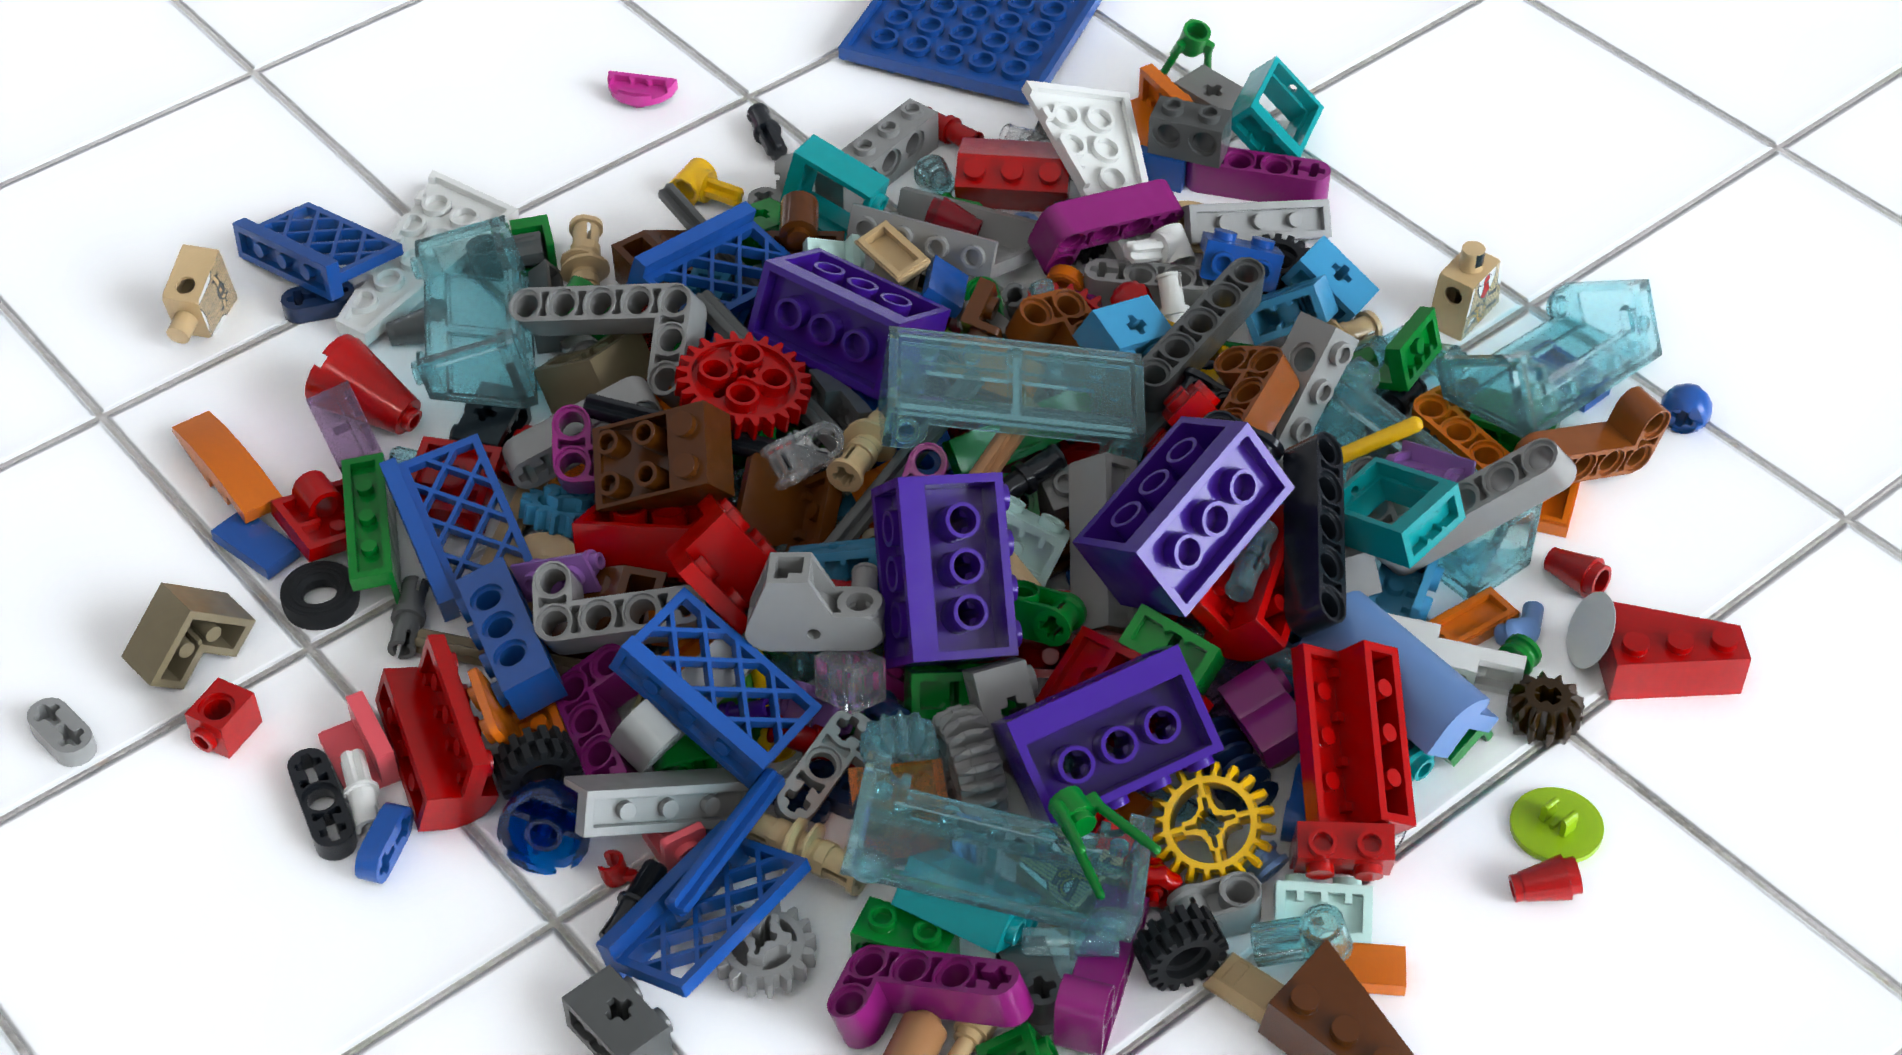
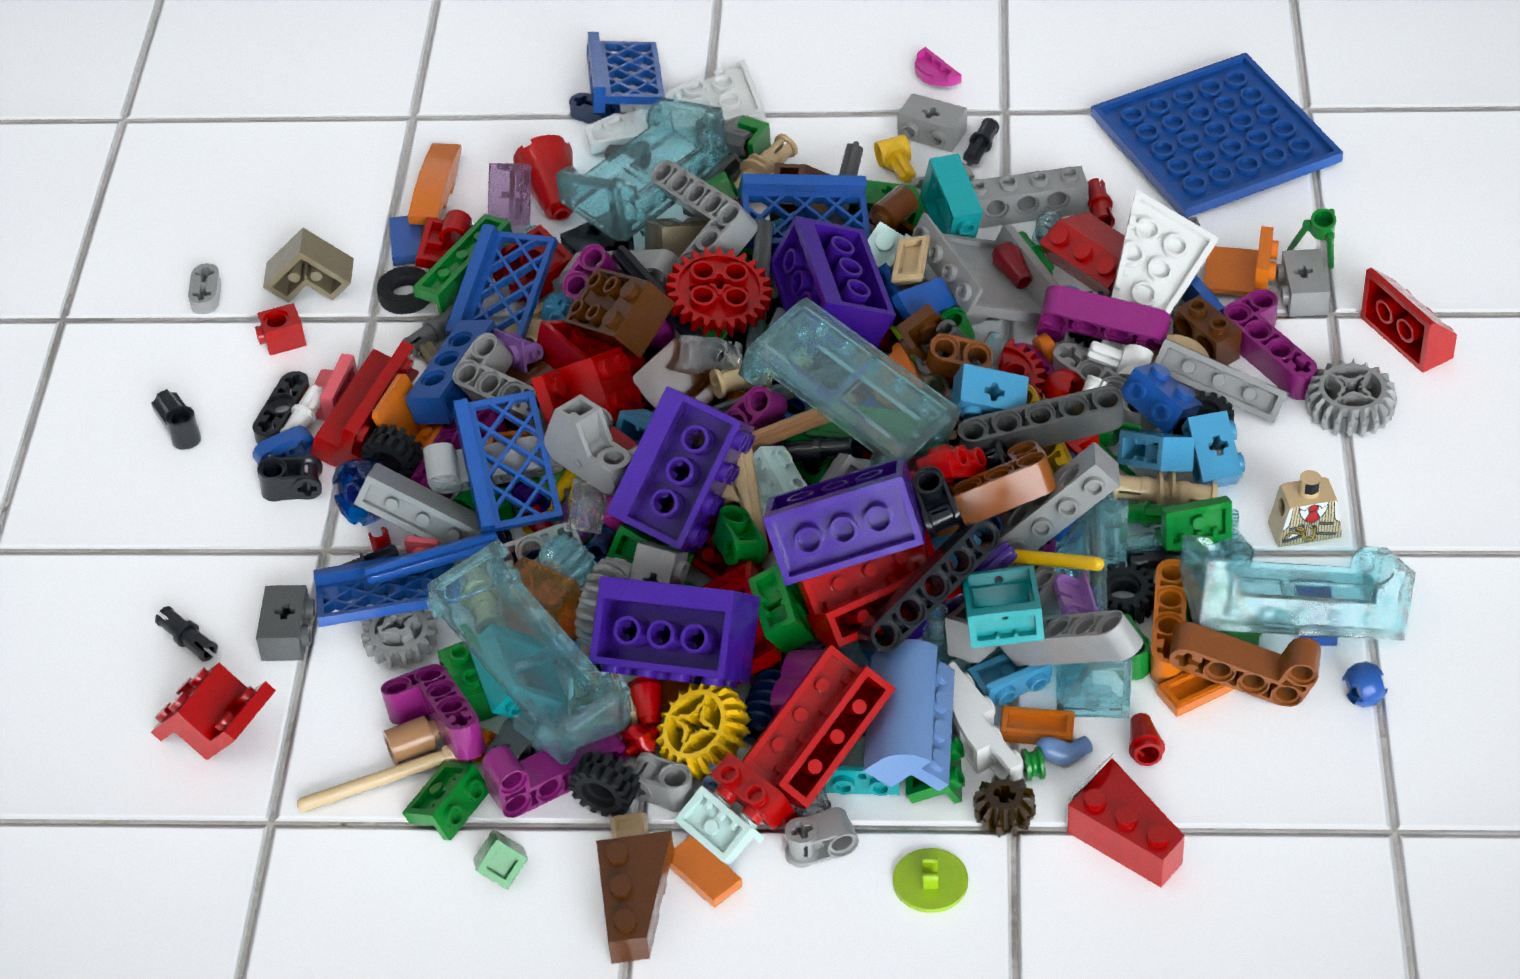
camera: 45 degrees right, 0 degrees up
(197, 294) = (524, 68): tan torso -> none
(215, 891) = (177, 419): none -> black piece
(431, 870) = (287, 478): none -> black piece
(701, 133) = (932, 122): none -> light grey brick
(1076, 818) = (591, 656): green plant -> none
(1189, 131) = (1232, 289): dark grey brick -> none
(1194, 179) = (1209, 328): none -> reddish brown brick
(1251, 563) = (851, 588): clear light blue pin -> none
(1258, 127) = (1296, 320): teal window -> none
(1298, 937) = (686, 826): clear light blue piece -> none
(1349, 88) = (1406, 322): none -> red slope
(1374, 178) = (1351, 398): none -> light grey gear
(1427, 856) = (822, 835): none -> light grey piece
(1547, 881) = (873, 903): red cone -> none

